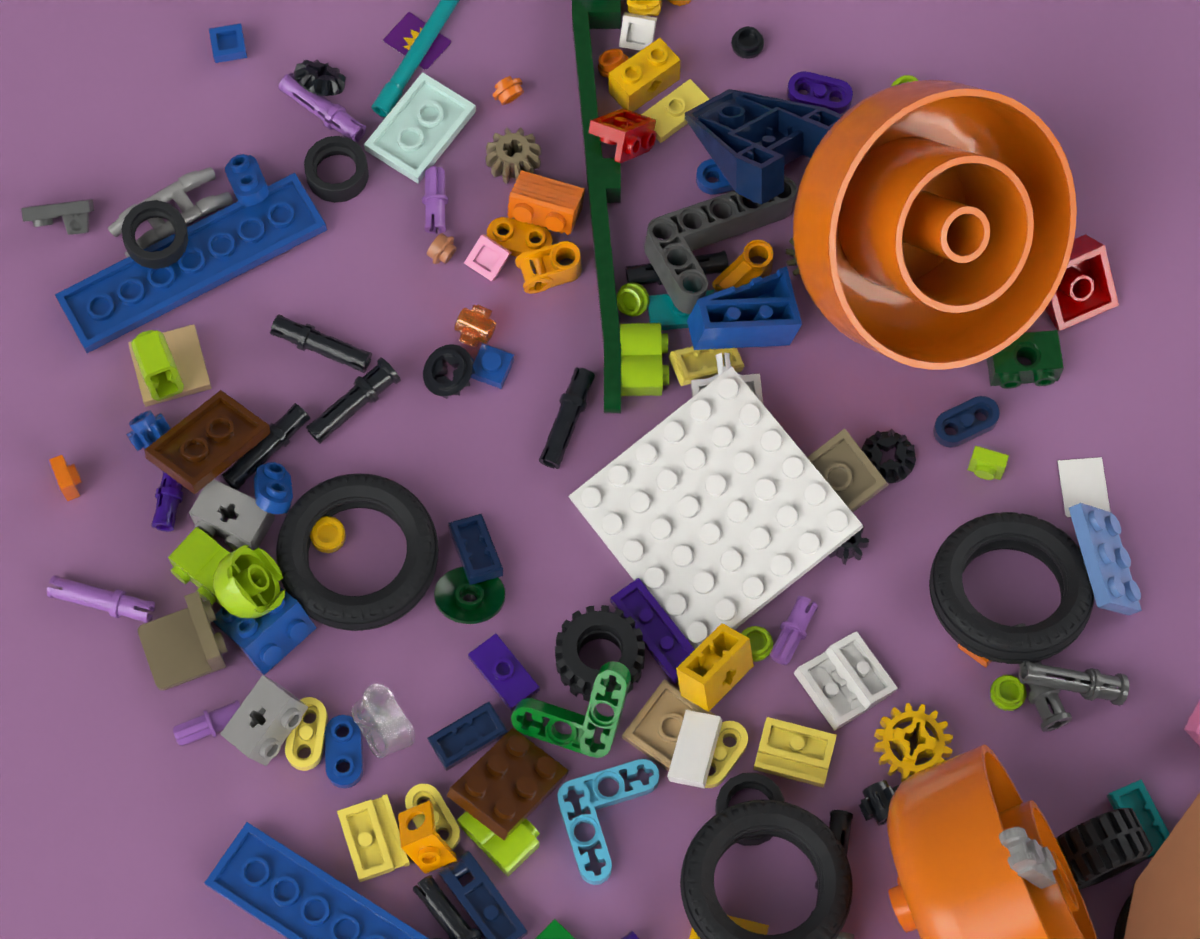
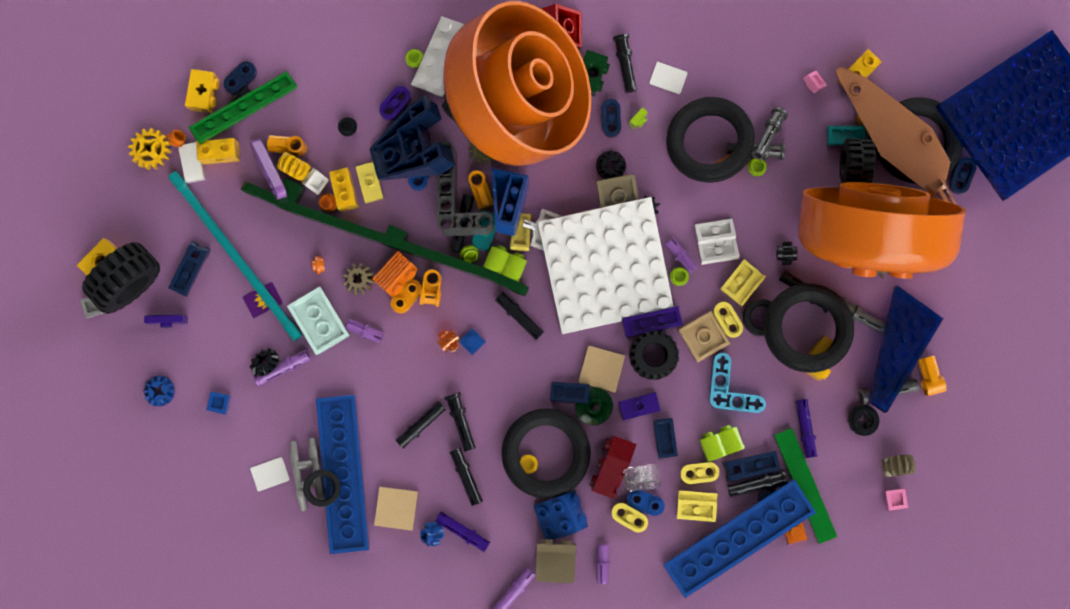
camera: 65 degrees left, 15 degrees up
(66, 476) = (437, 586): orange plate -> none
(74, 214) = (283, 525): dark grey hinge -> none
(148, 163) = (270, 474): none -> white sticker
(157, 365) = (401, 516): lime brick -> none
(197, 561) = (520, 532): lime brick -> none
(207, 441) = (454, 506): reddish brown plate -> none
(222, 501) = (486, 512): light grey brick -> none
(246, 180) = (306, 425): blue plate -> none
(248, 583) = (546, 516): lime cylinder -> none
(264, 721) = (617, 546): light grey brick -> none
(273, 488) = (489, 482): blue plate -> none
(336, 146) = (308, 377): black tyre -> none
(389, 655) = (611, 466): none -> dark red brick
(424, 844) = (714, 482): light orange bracket -> none
(436, 368) = (461, 371): black gear -> none
(442, 249) = (395, 339): nougat plate -> none
(487, 257) = (411, 317): bright pink plate -> none
(507, 783) = (701, 429): reddish brown plate -> none
(539, 585) = (601, 369): none -> tan tile
(582, 726) = (688, 380): green beam -> none
(626, 129) = (374, 215): red bracket -> none
(695, 749) = (722, 330): white tile -> none
(715, 667) = (687, 302): yellow brick -> none
(899, 740) = (769, 229): yellow gear -> none
(1028, 857) = (891, 204): light grey hinge -> none
(1082, 397) = (623, 54): none -> black pin
(1105, 559) = (716, 87): medium blue plate -> none

